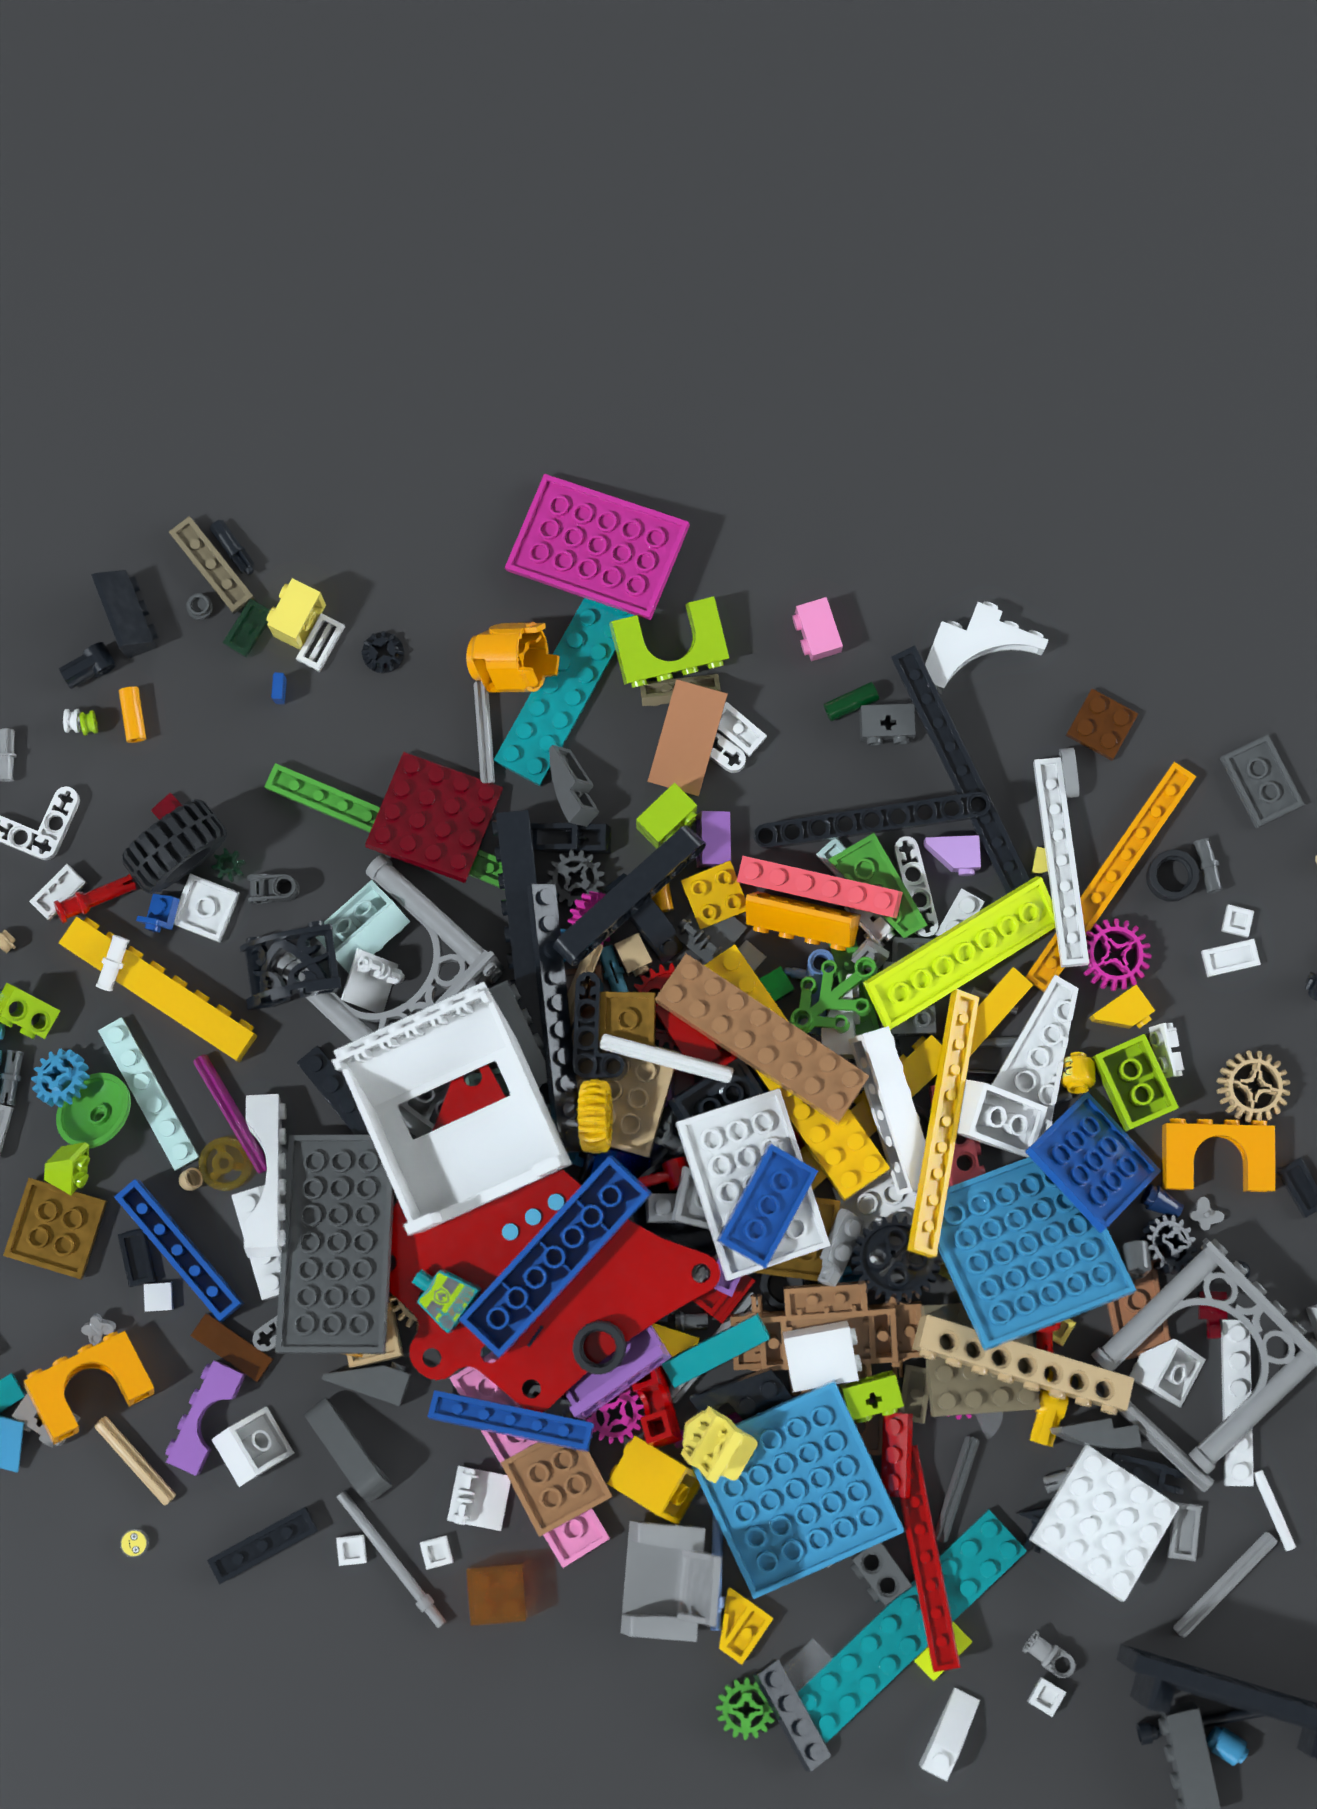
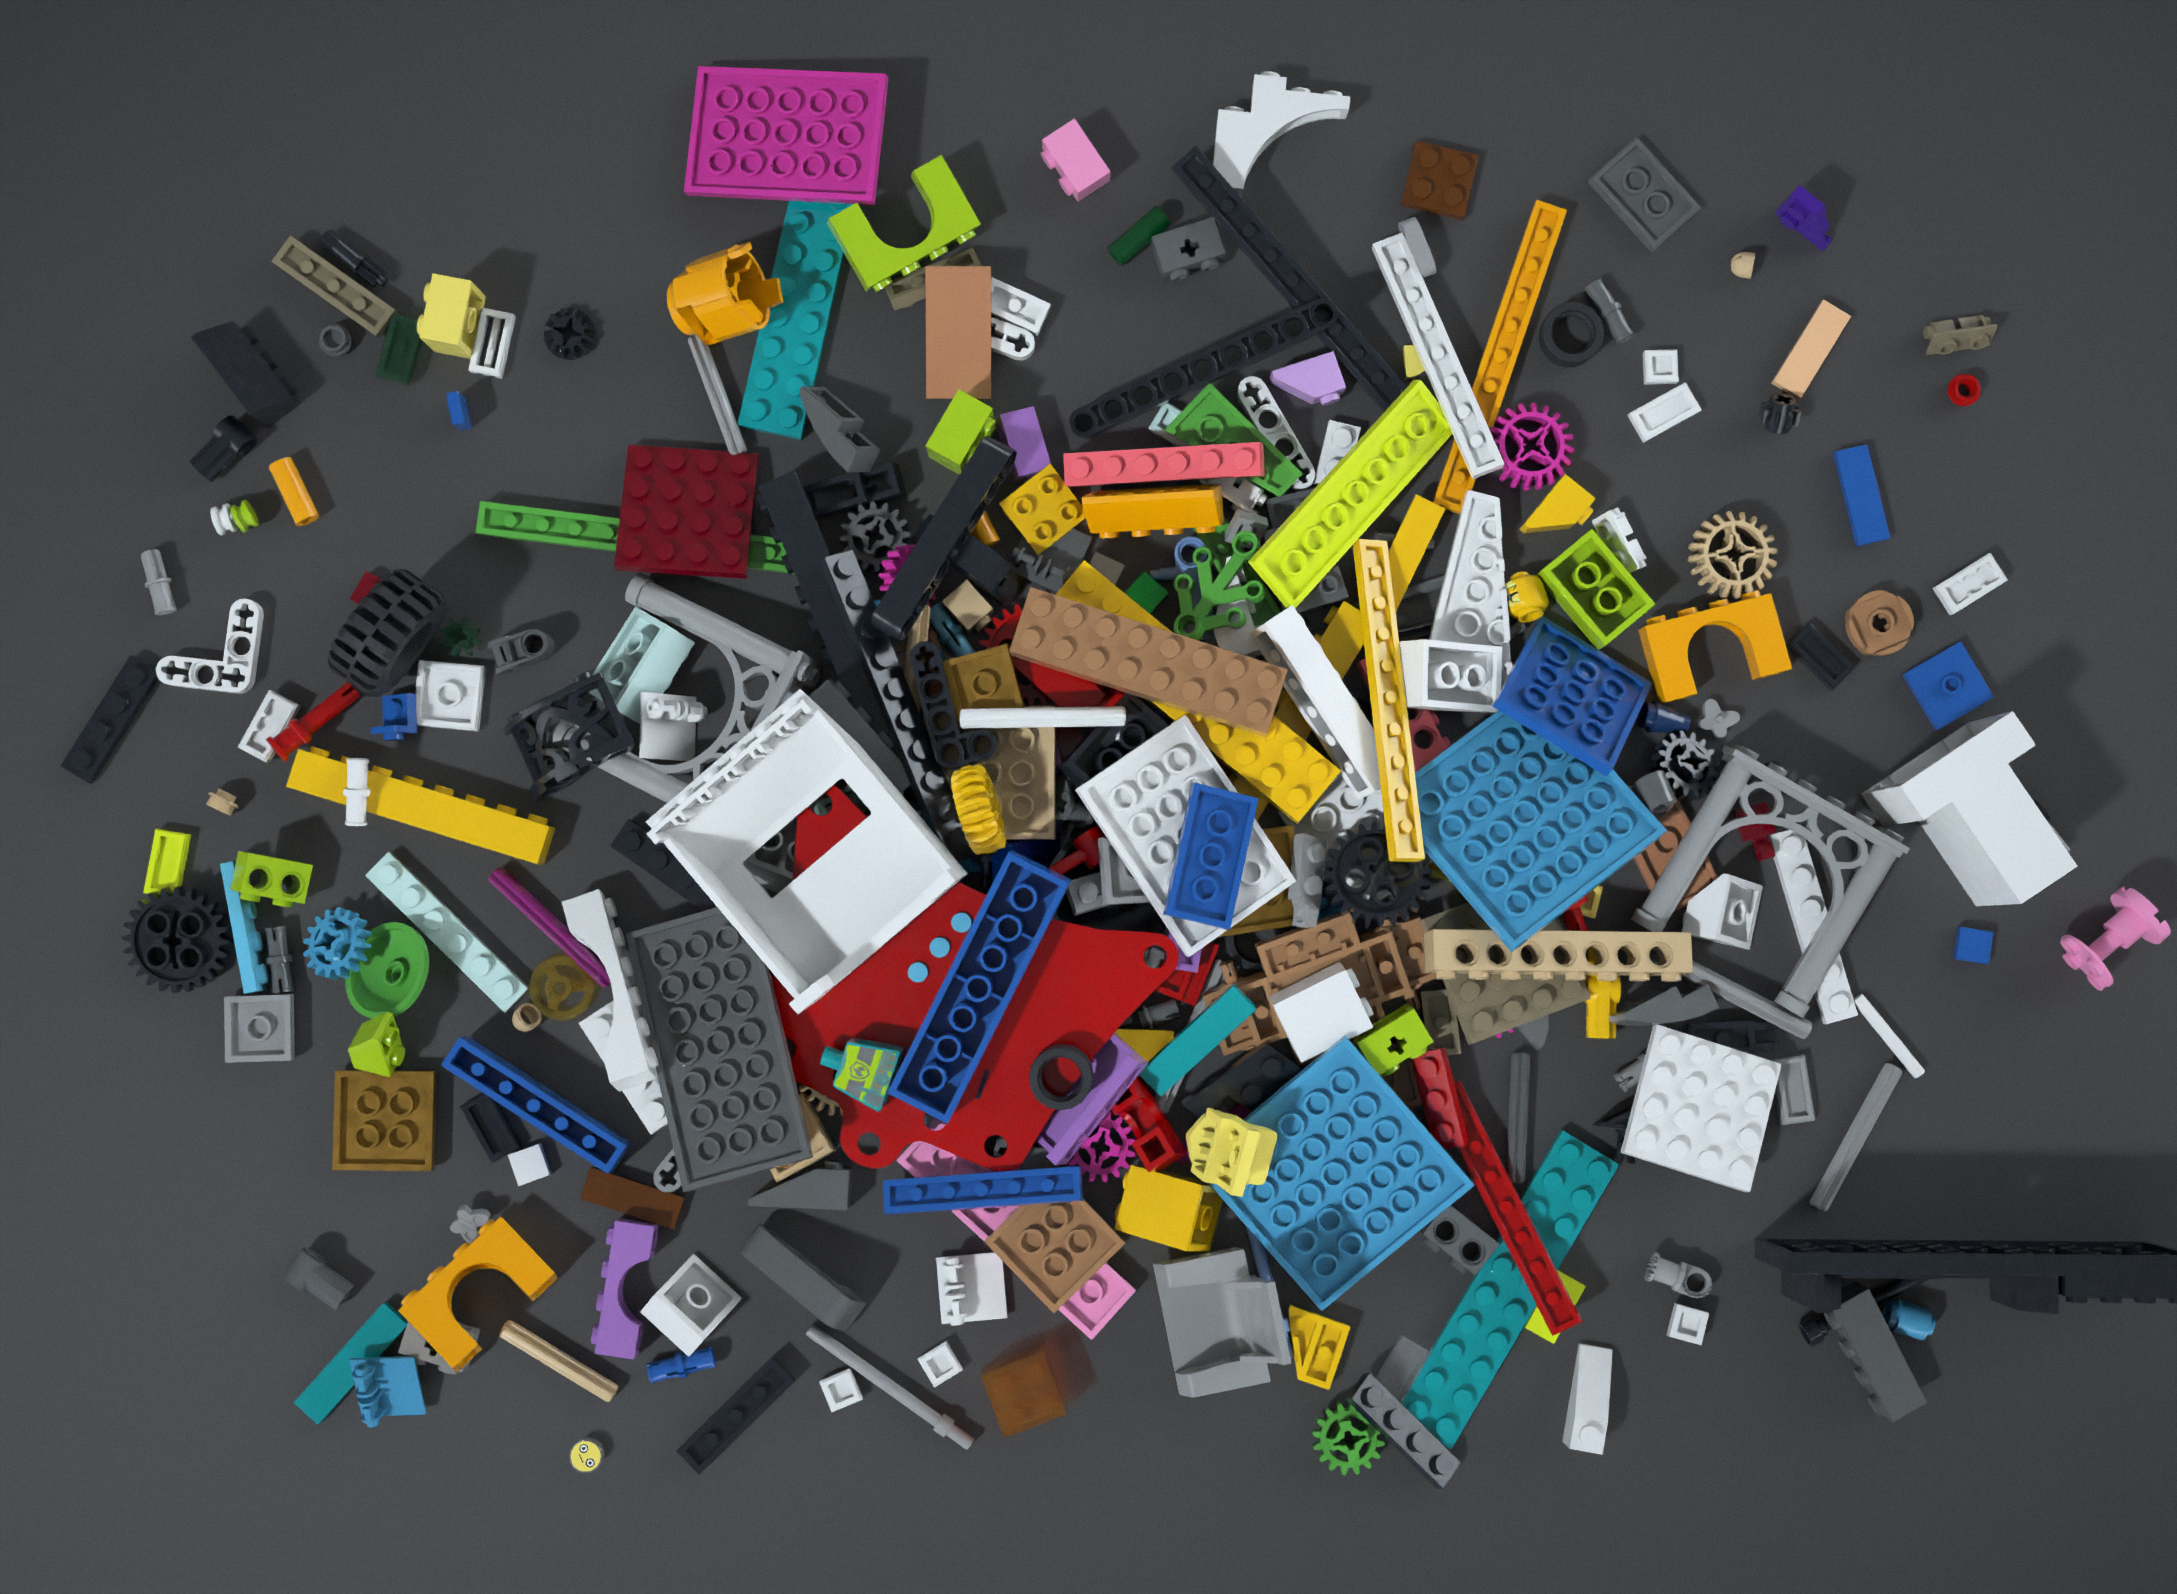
camera: 20 degrees left, 5 degrees up
(231, 1492) = (681, 1365): none -> blue pin

